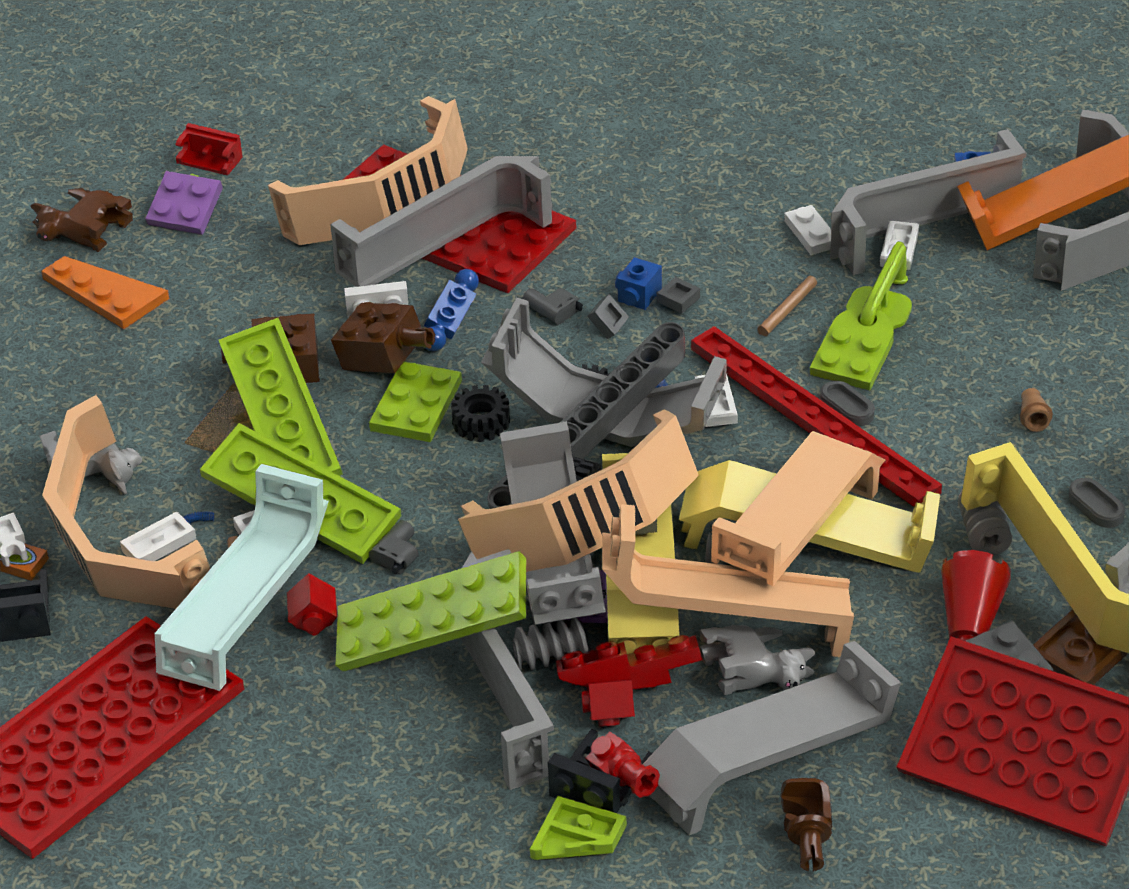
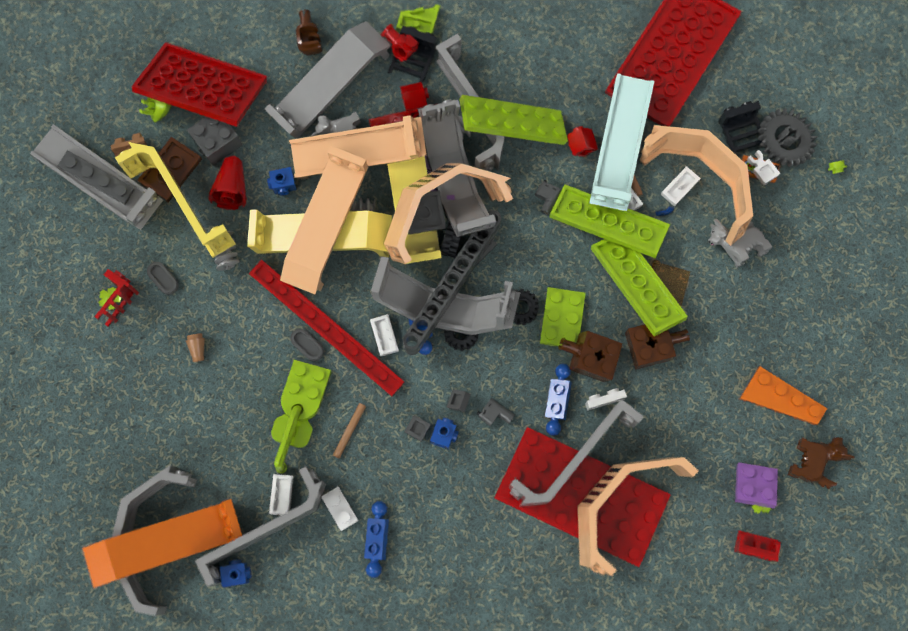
camera: 170 degrees right, 35 degrees up
(759, 194) = (376, 539): none -> blue plate
(875, 603) = (282, 181): none -> blue brick

